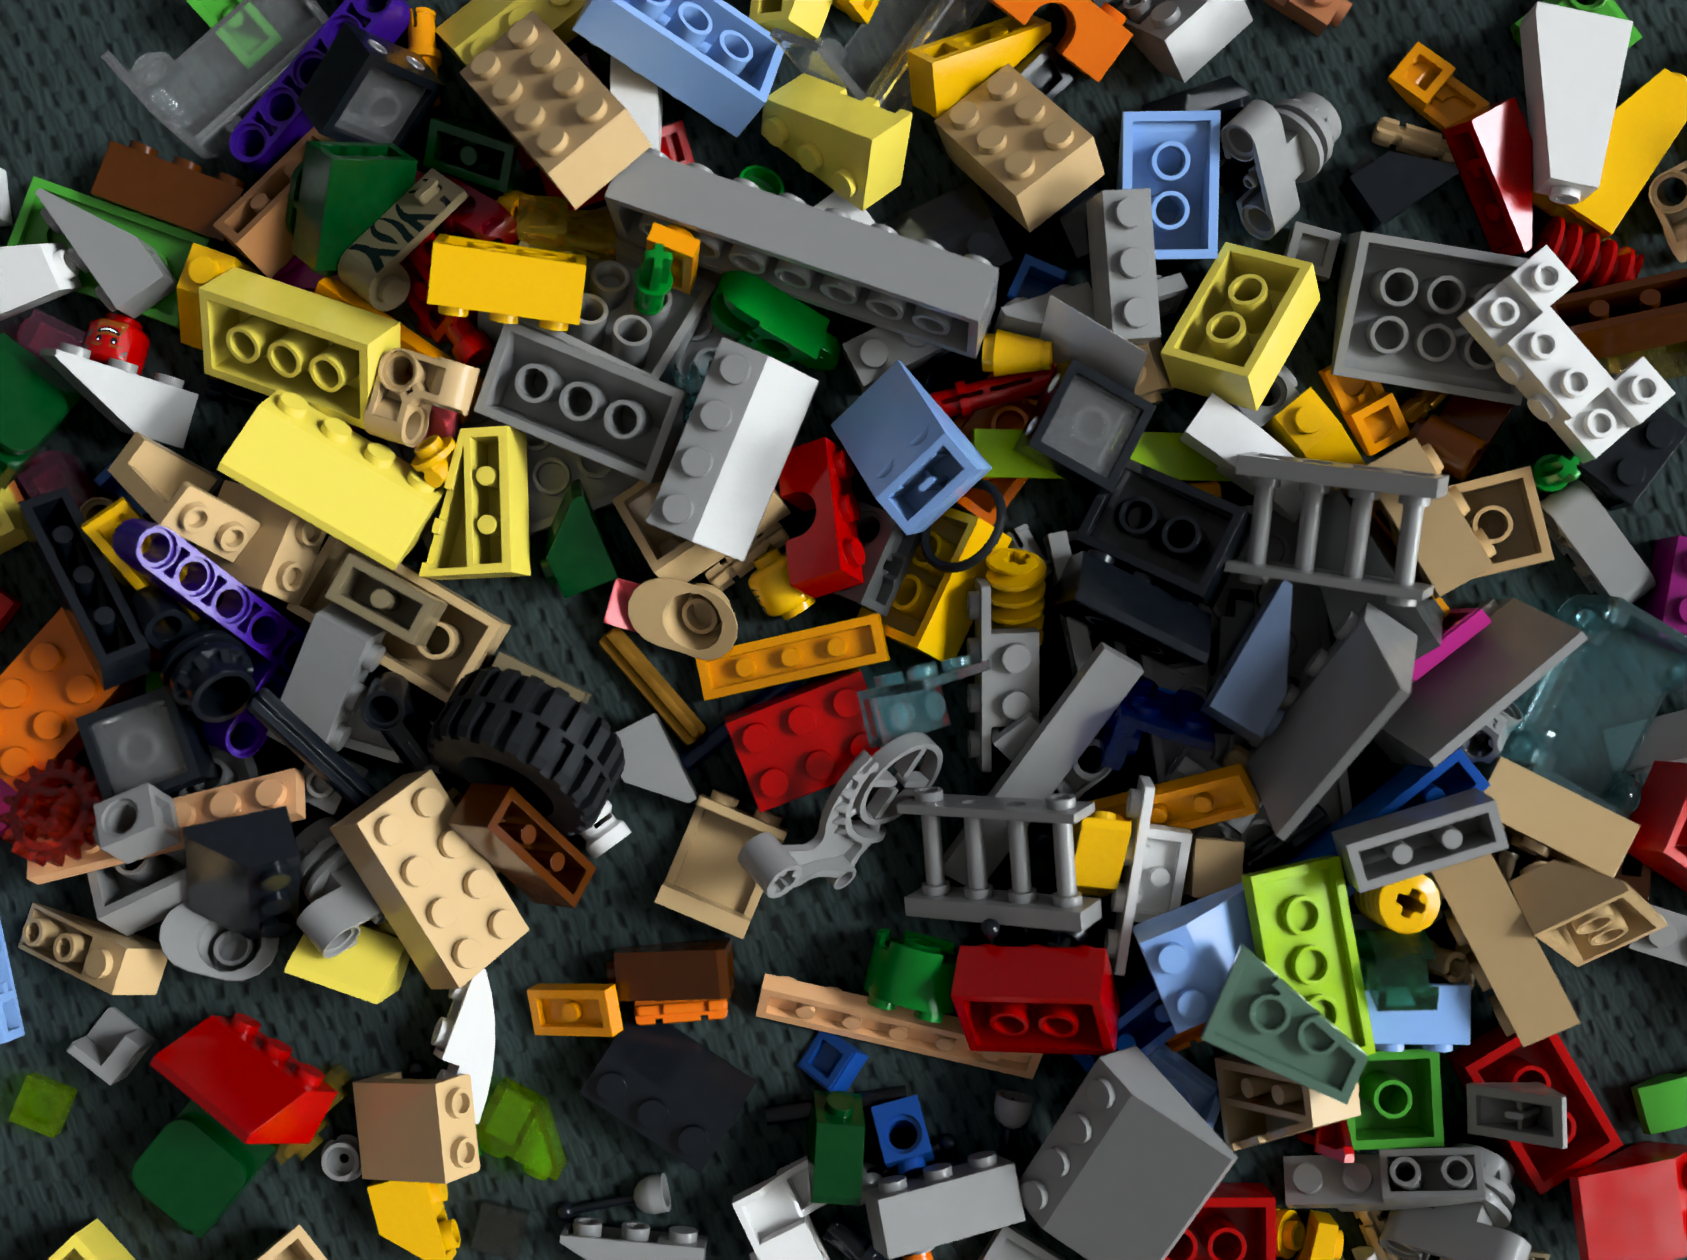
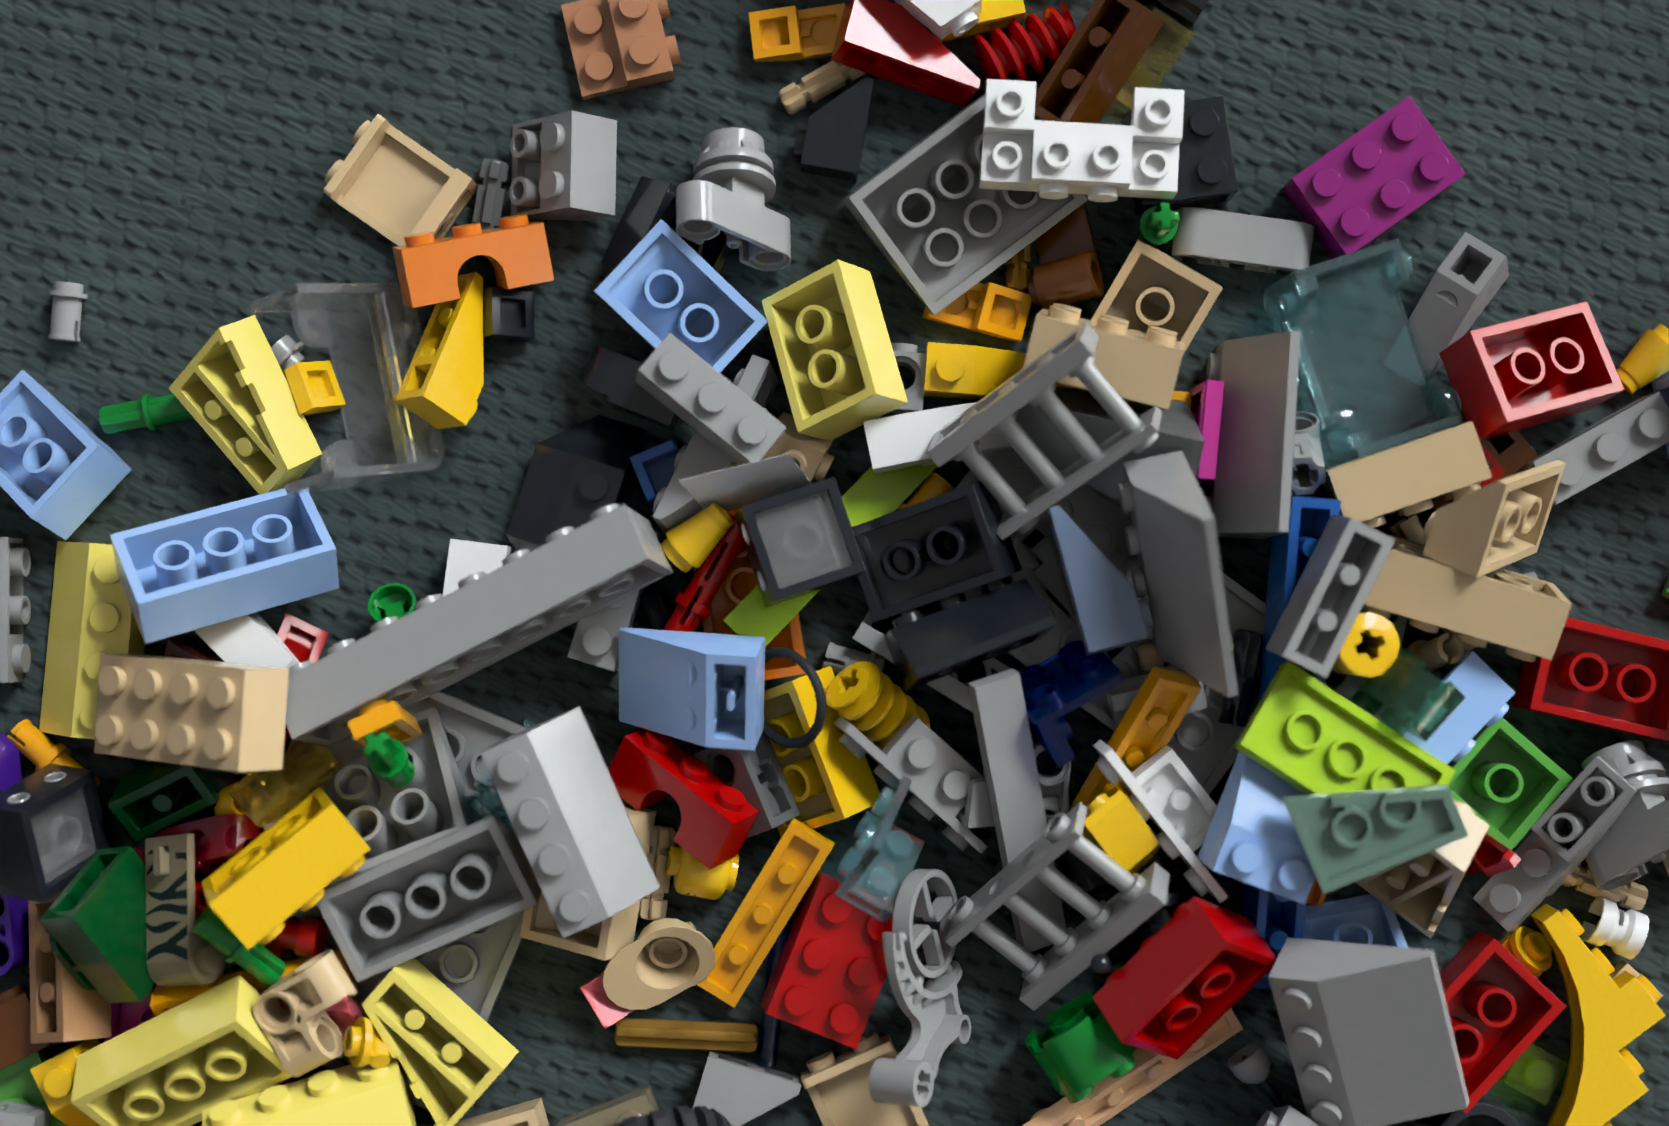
camera: 45 degrees left, 0 degrees up
(420, 315) = (256, 960): none -> green axle
(577, 546) = (530, 994): dark green slope -> none
(772, 322) = (502, 692): green piece -> none
(839, 138) = (411, 515): light yellow wedge -> none
(1020, 147) = (547, 387): tan brick -> none
(1213, 865) = (1209, 750): tan brick -> none
(1314, 246) = (828, 239): light grey plate -> none
(1517, 1112) = (1596, 705): light grey slope -> none

